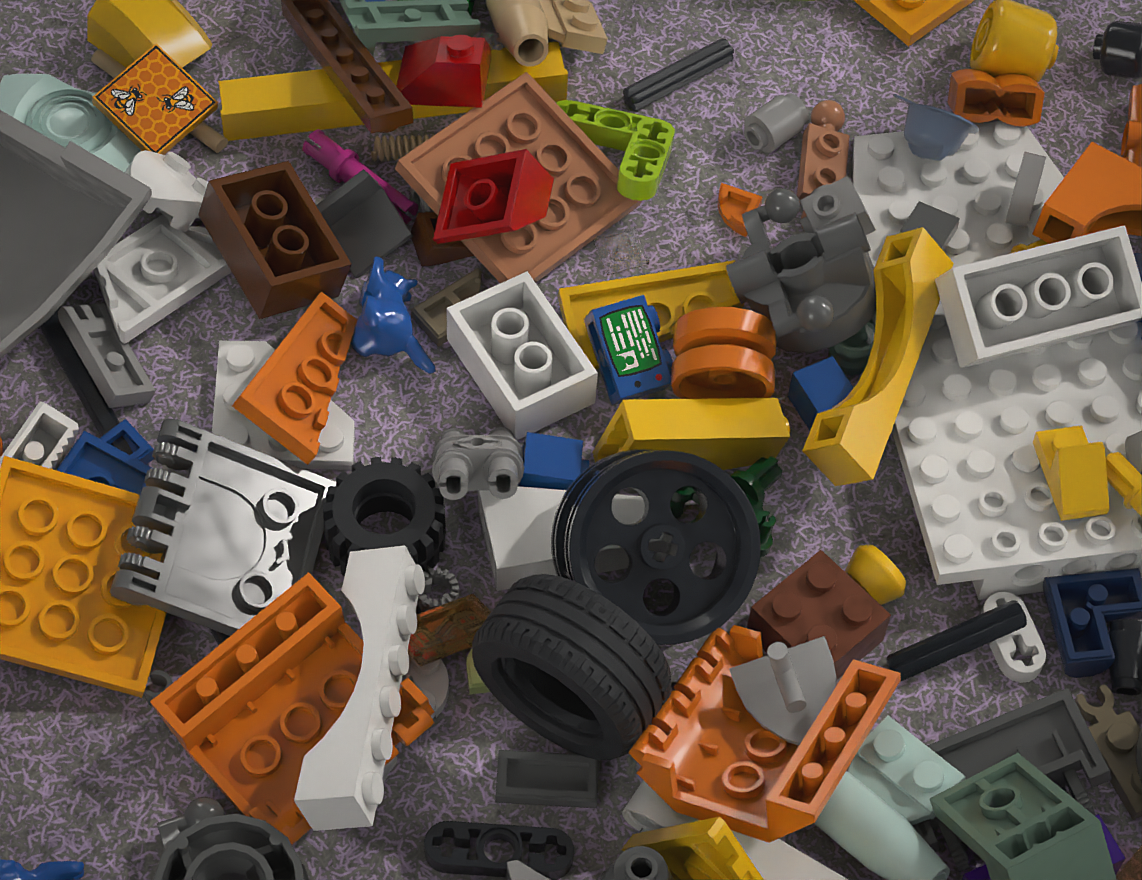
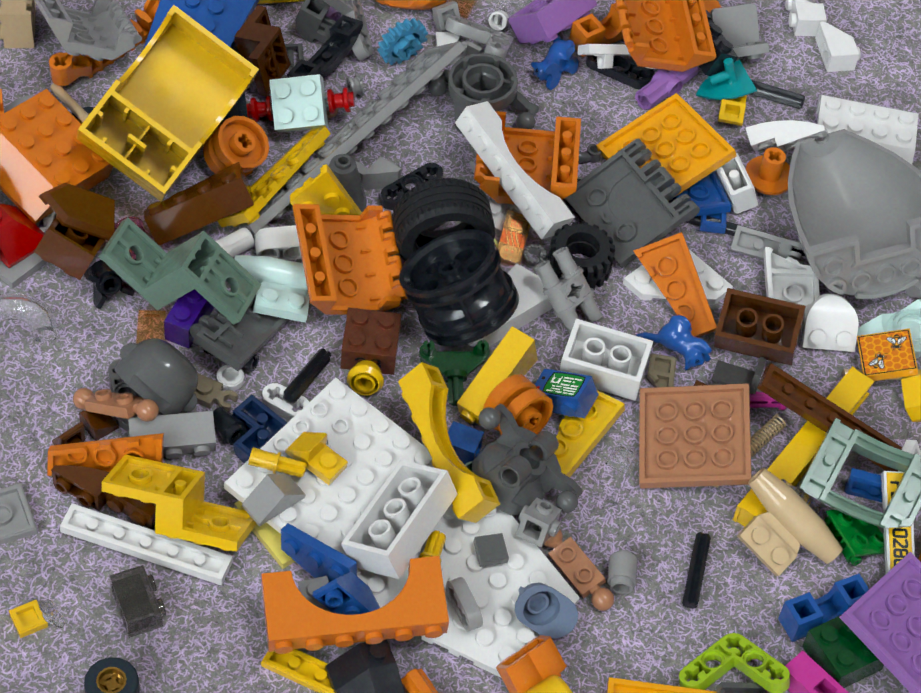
camera: 135 degrees right, 5 degrees down
(445, 71) = (782, 447): red slope -> none
(492, 196) = (686, 395): red slope -> none
(551, 461) = (544, 326): blue brick -> none
(644, 139) = (676, 510): lime beam -> none
(735, 203) = (594, 520): orange tile -> none
(787, 687) = (355, 286): light grey shield -> none

